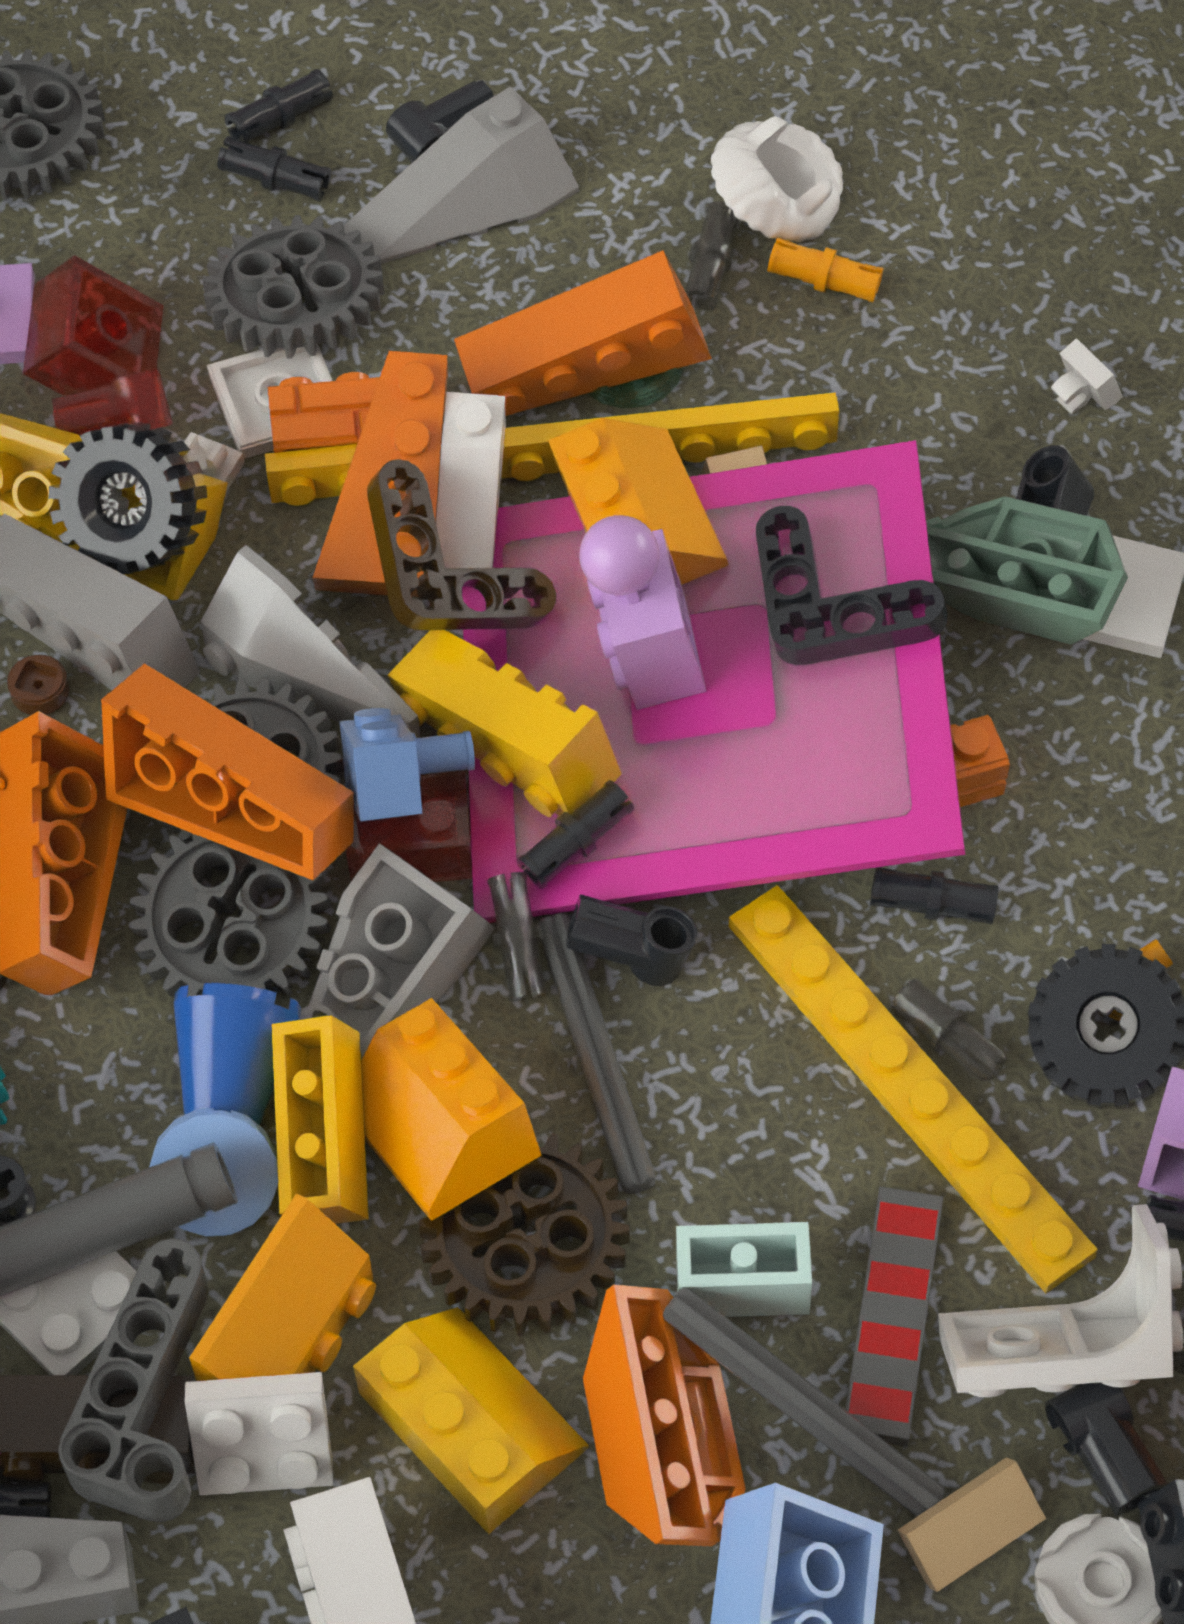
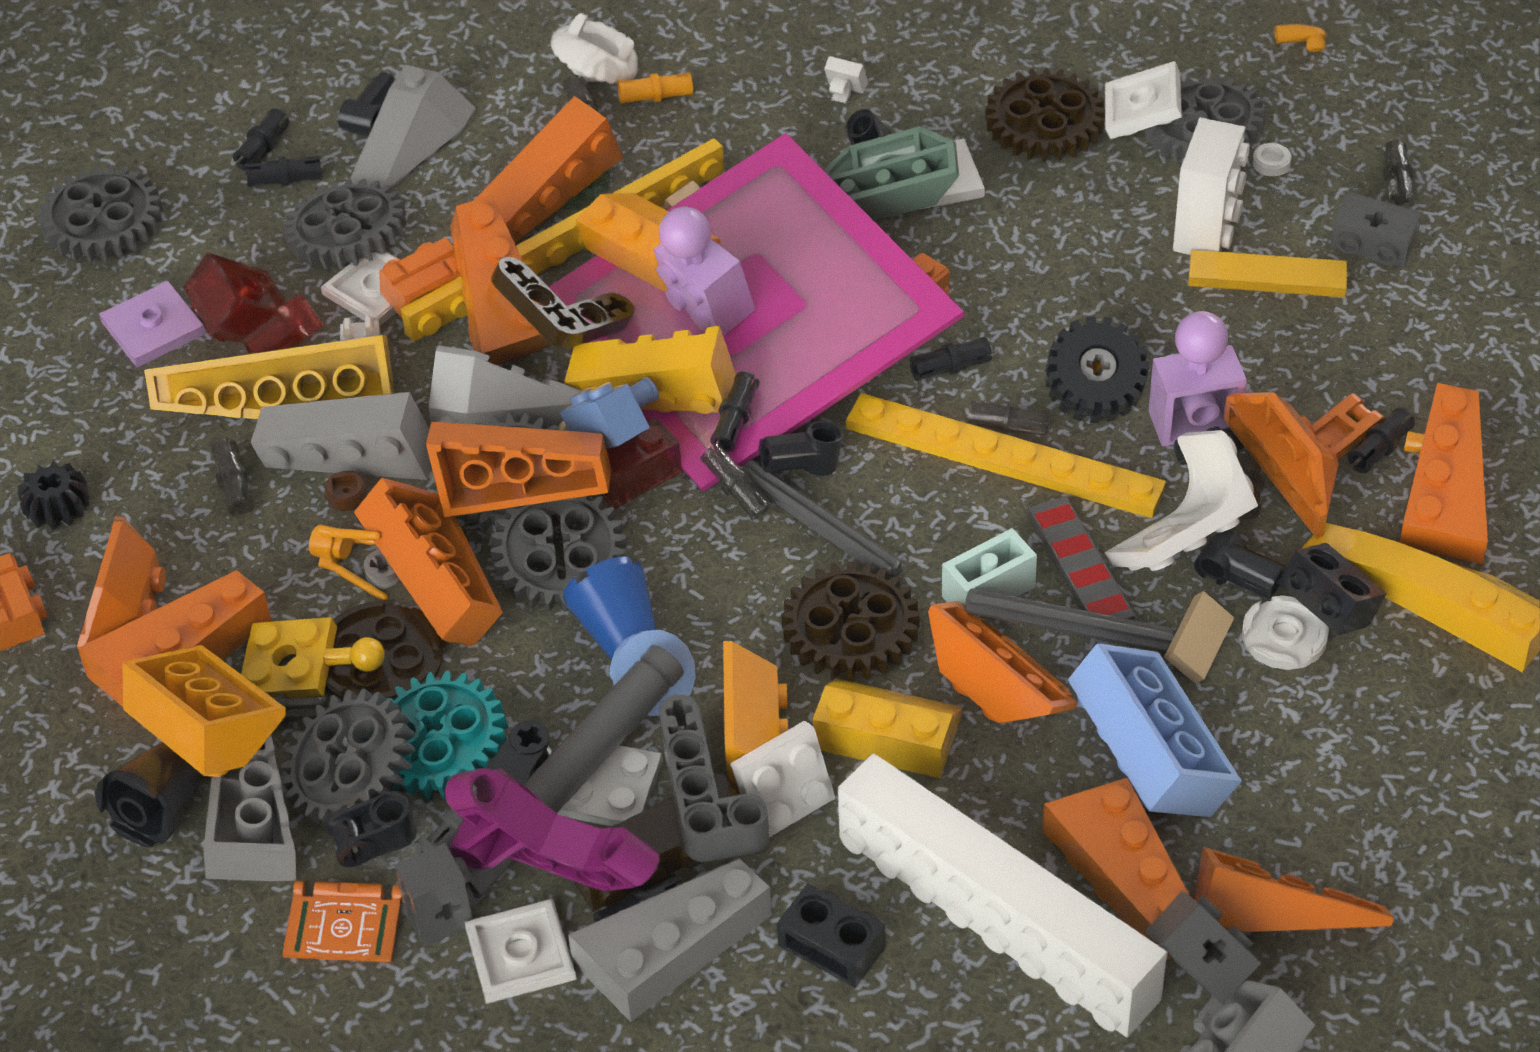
camera: 30 degrees left, 10 degrees down
(99, 515) = (323, 336): bush -> none
(320, 1117) = (692, 609): yellow brick -> none
(393, 946) = (670, 531): light grey wedge -> none
(440, 1111) = (760, 578): light orange slope -> none
(470, 478) = (540, 251): white slope -> none
(811, 610) = (791, 239): black beam -> none

